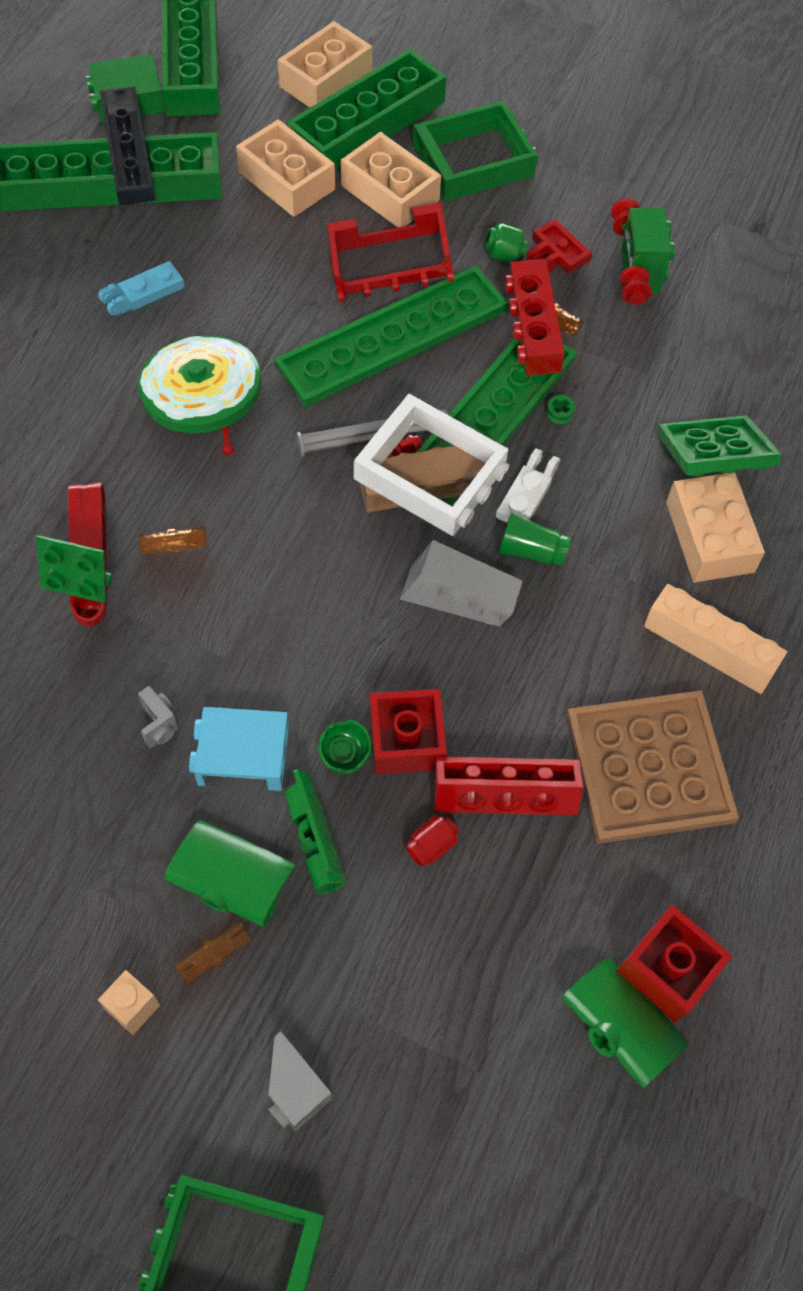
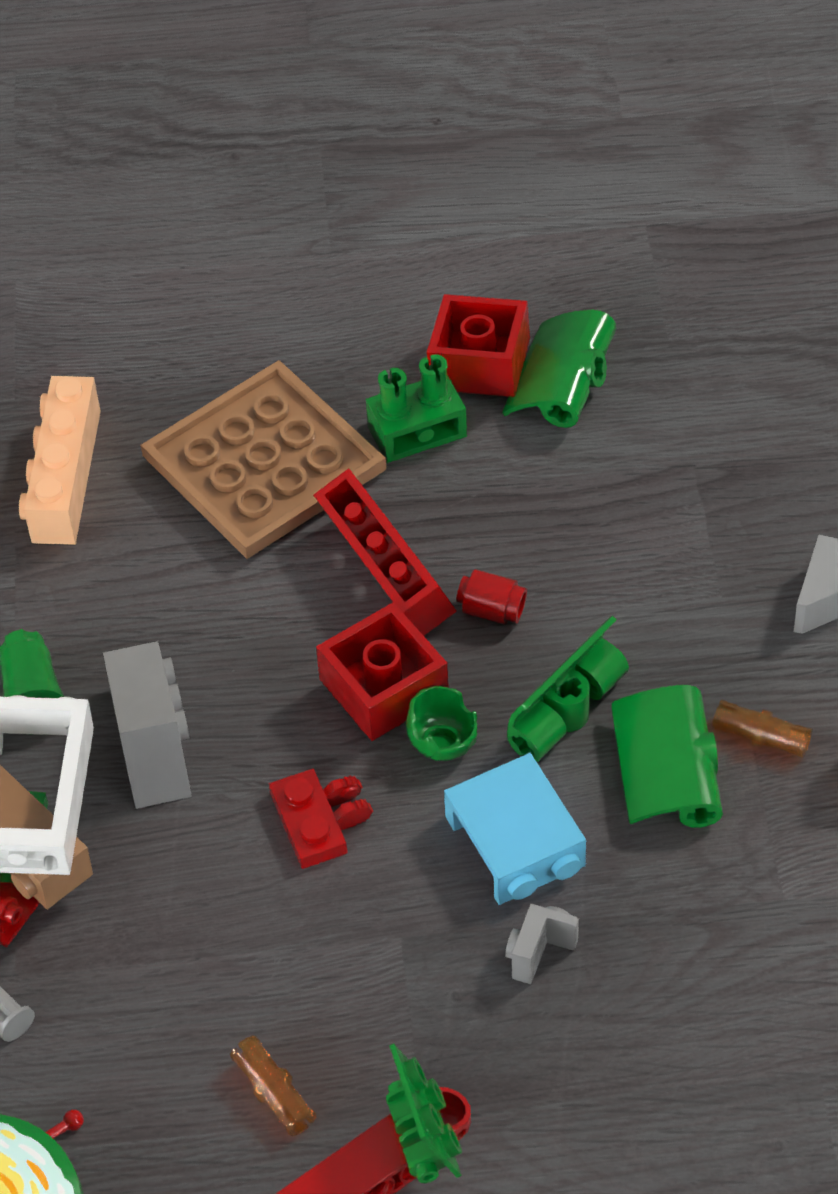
camera: 115 degrees left, 10 degrees down
(336, 648) = (309, 817): none -> red hinge
(631, 883) = (418, 414): none -> green brick

